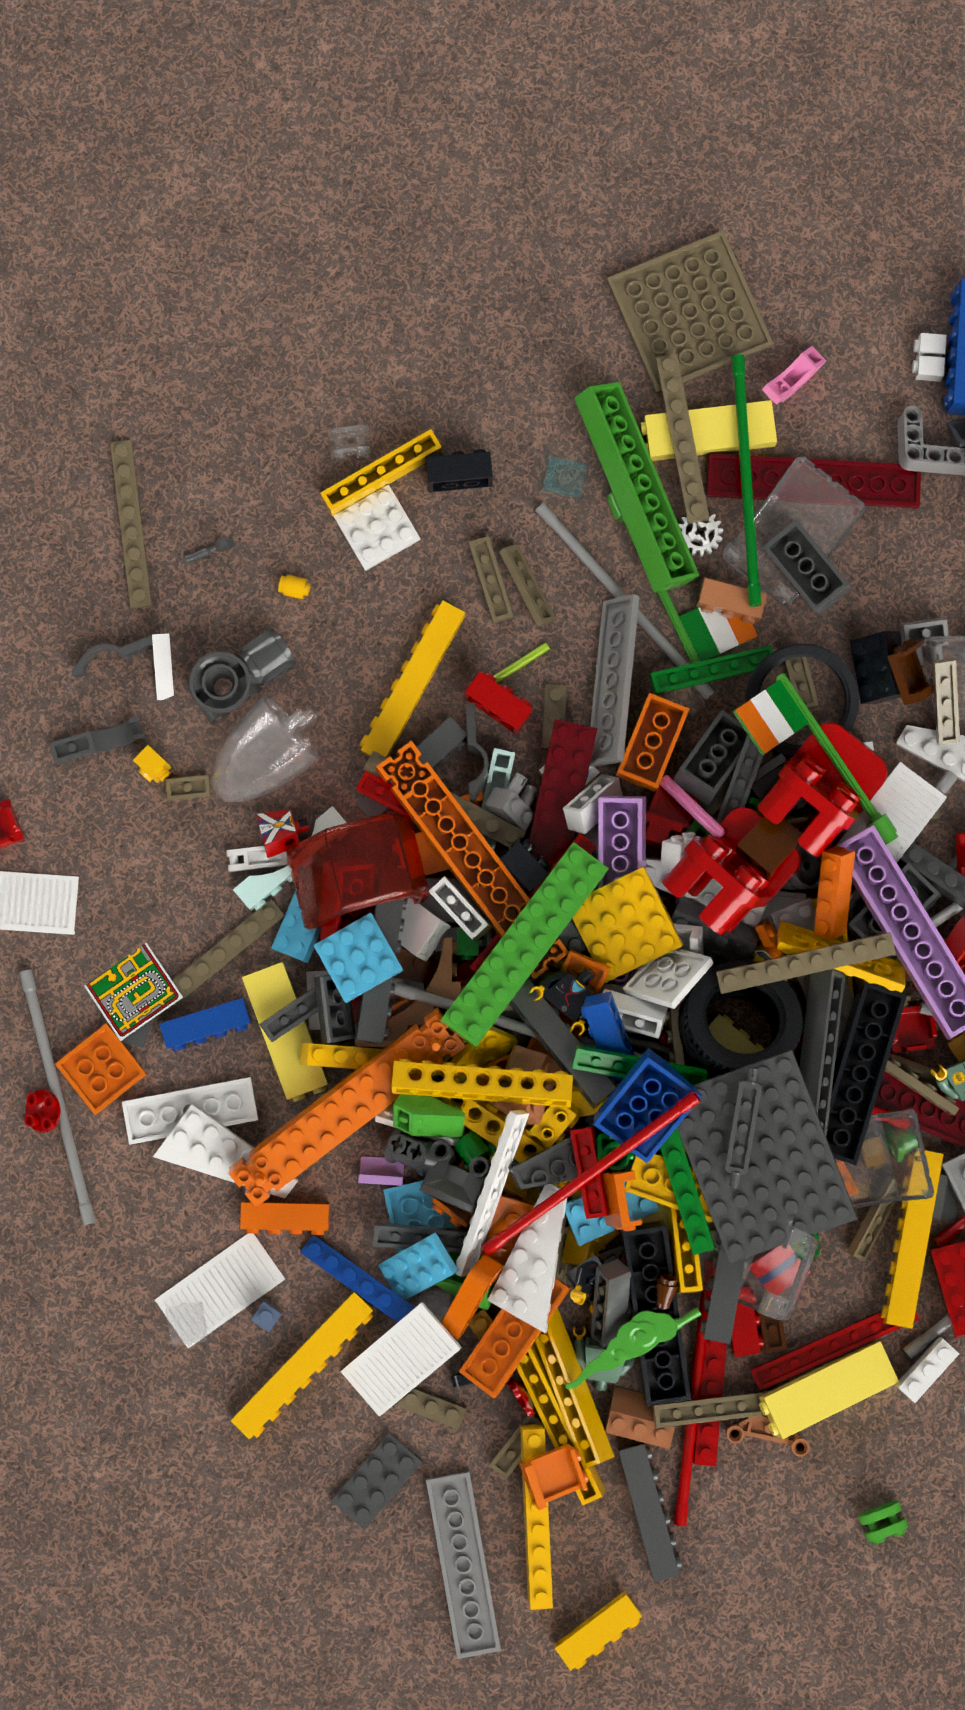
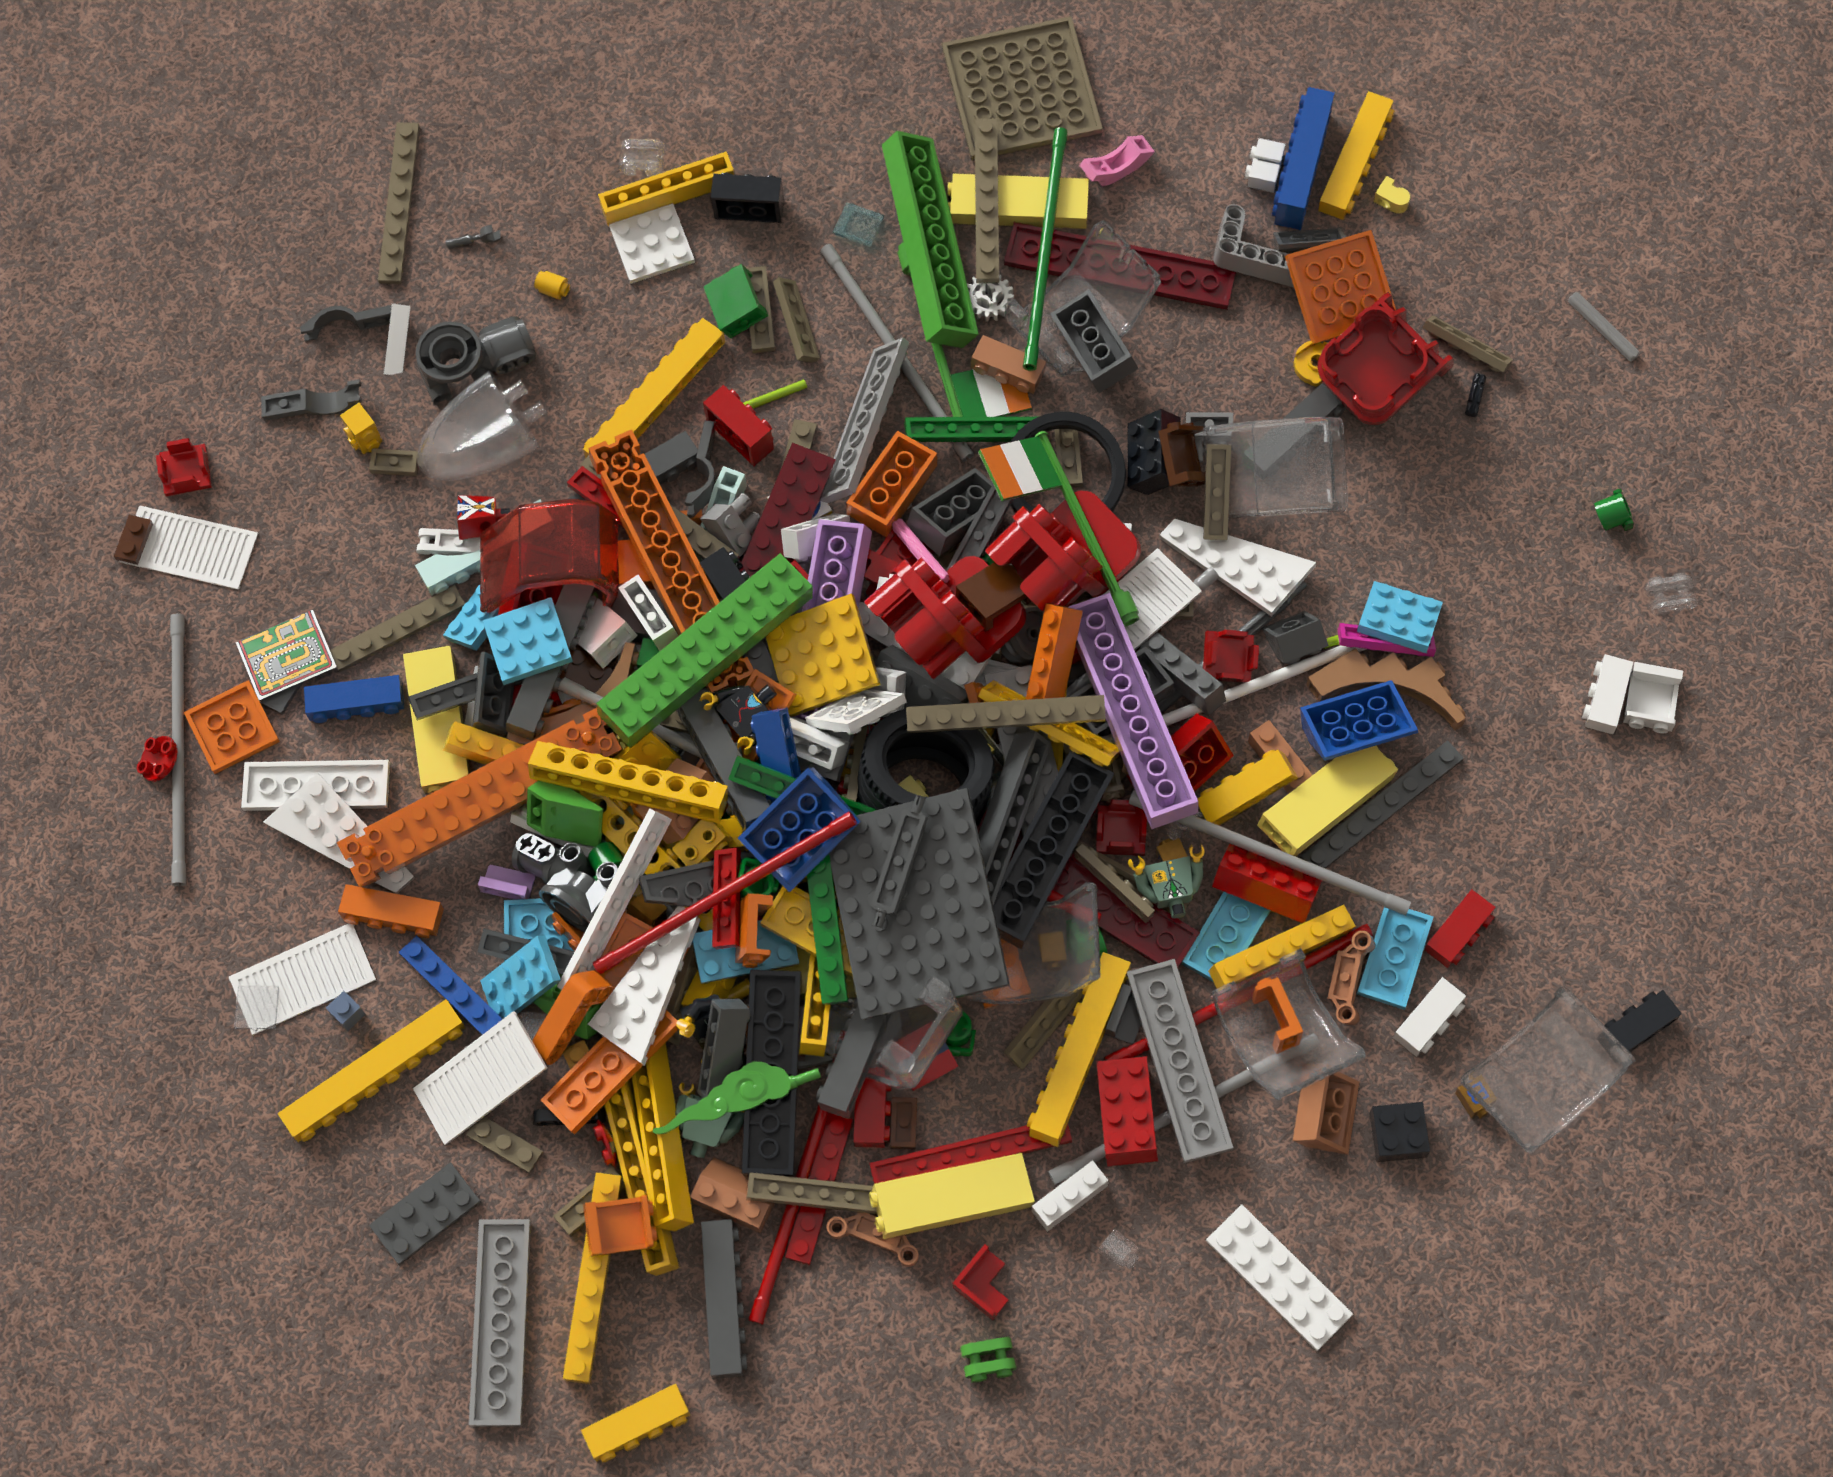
camera: 15 degrees right, 15 degrees down
(468, 578) = (734, 301): none -> green panel
(666, 1290) = (785, 1040): reddish brown cone -> none
(859, 1458) = (975, 1282): none -> red panel

